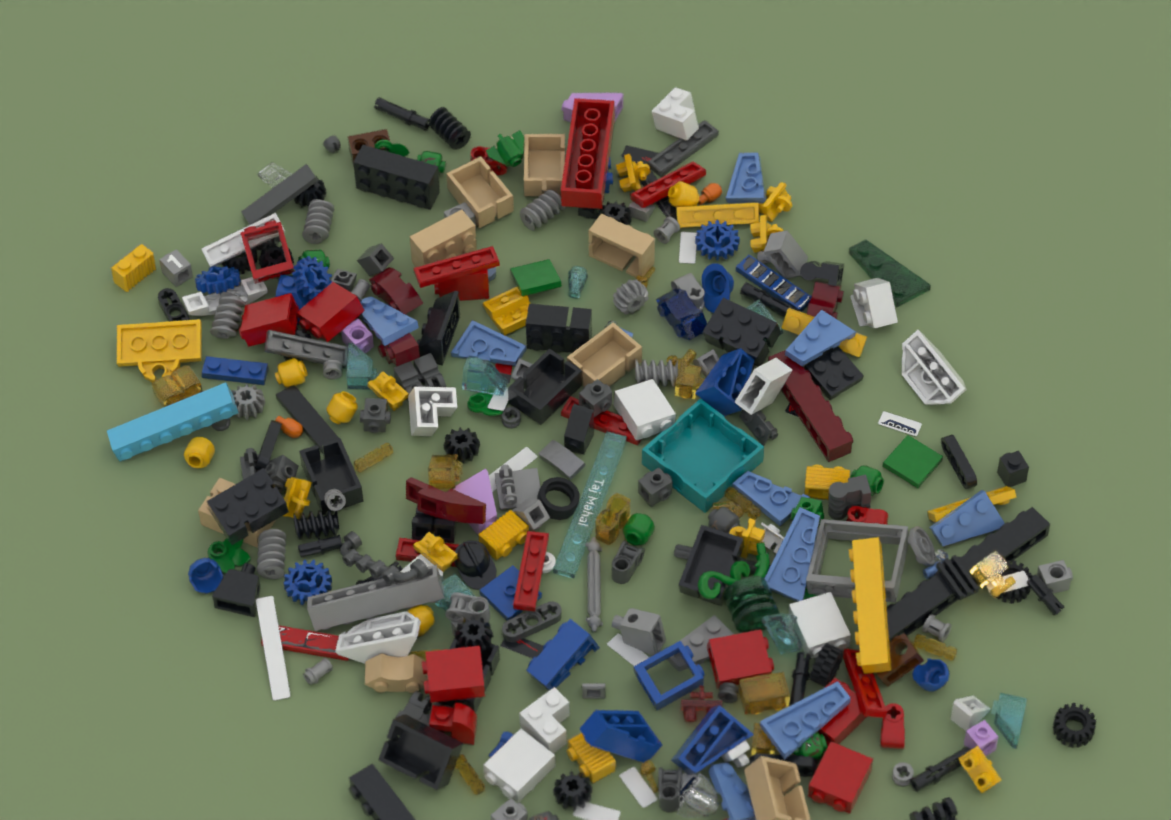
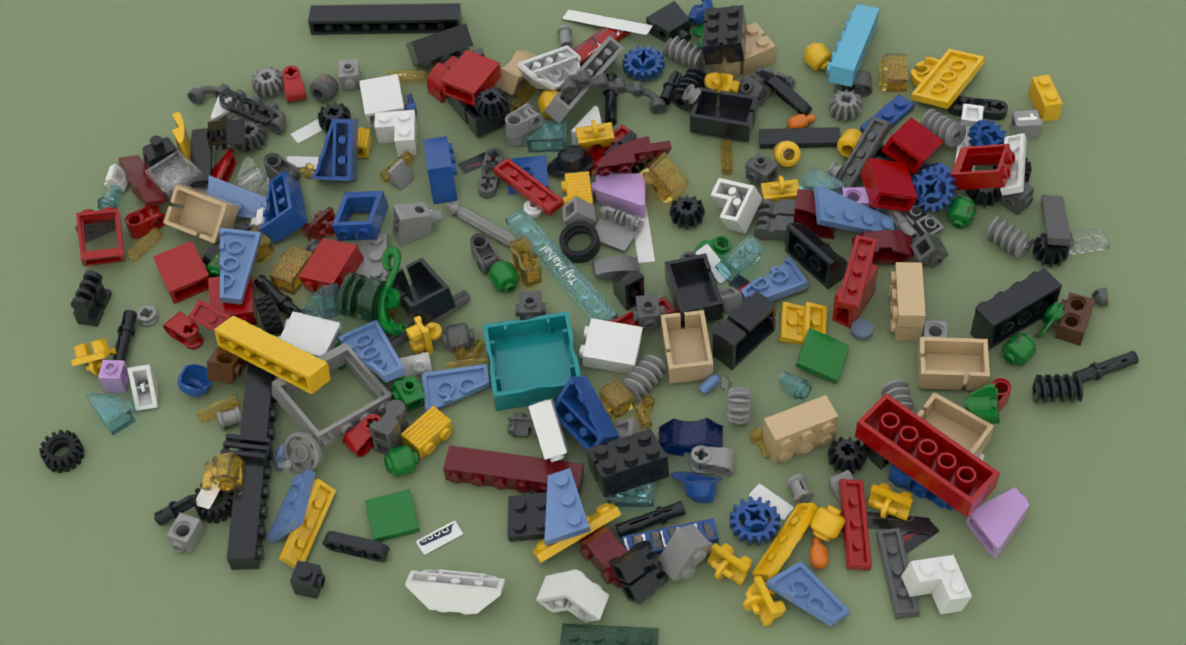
camera: 130 degrees right, 0 degrees up
(587, 701) = (406, 156): none -> clear yellow axle

